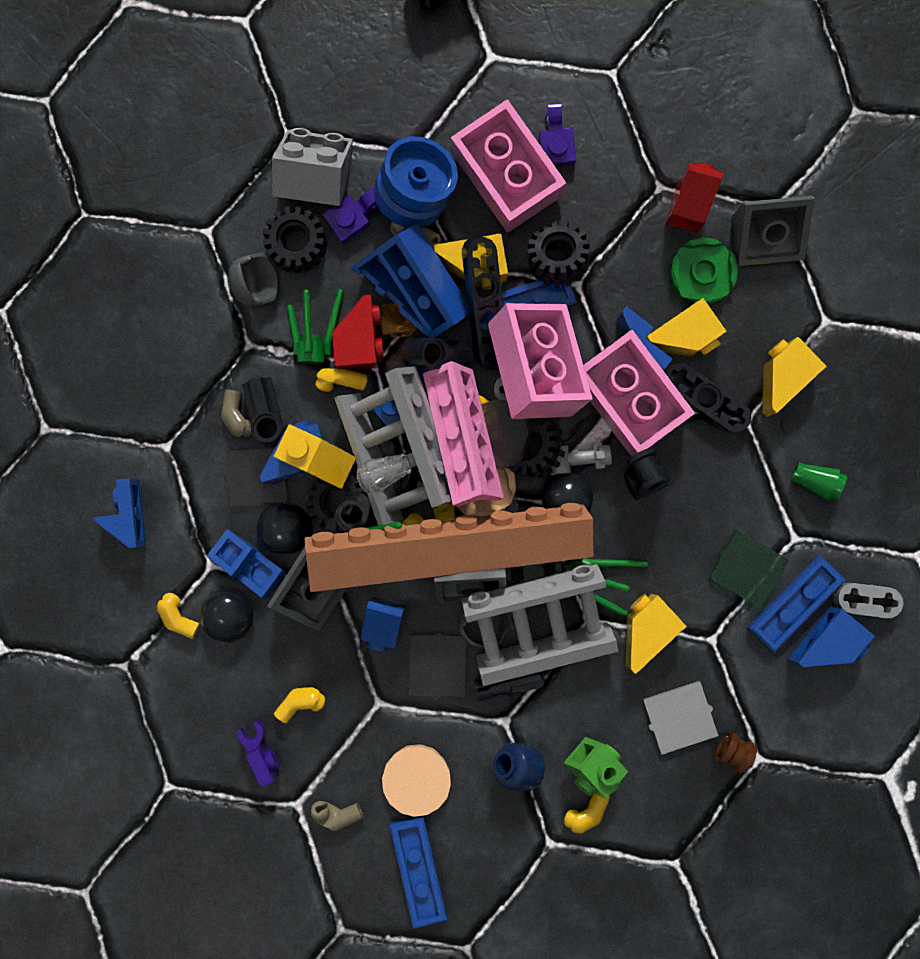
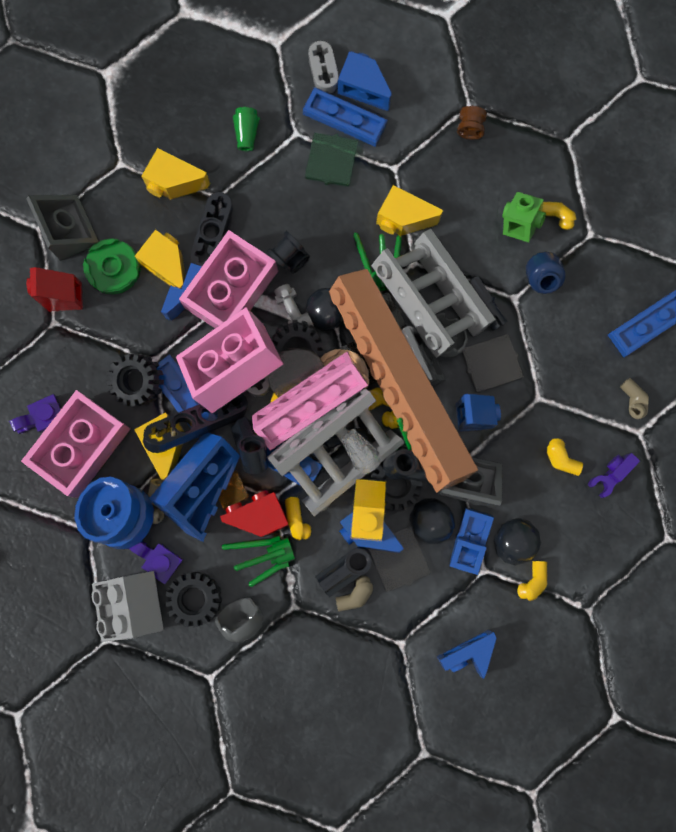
camera: 110 degrees left, 5 degrees down
(416, 780) = (585, 347): light nougat tile -> none
(680, 717) = (461, 172): light grey piece -> none

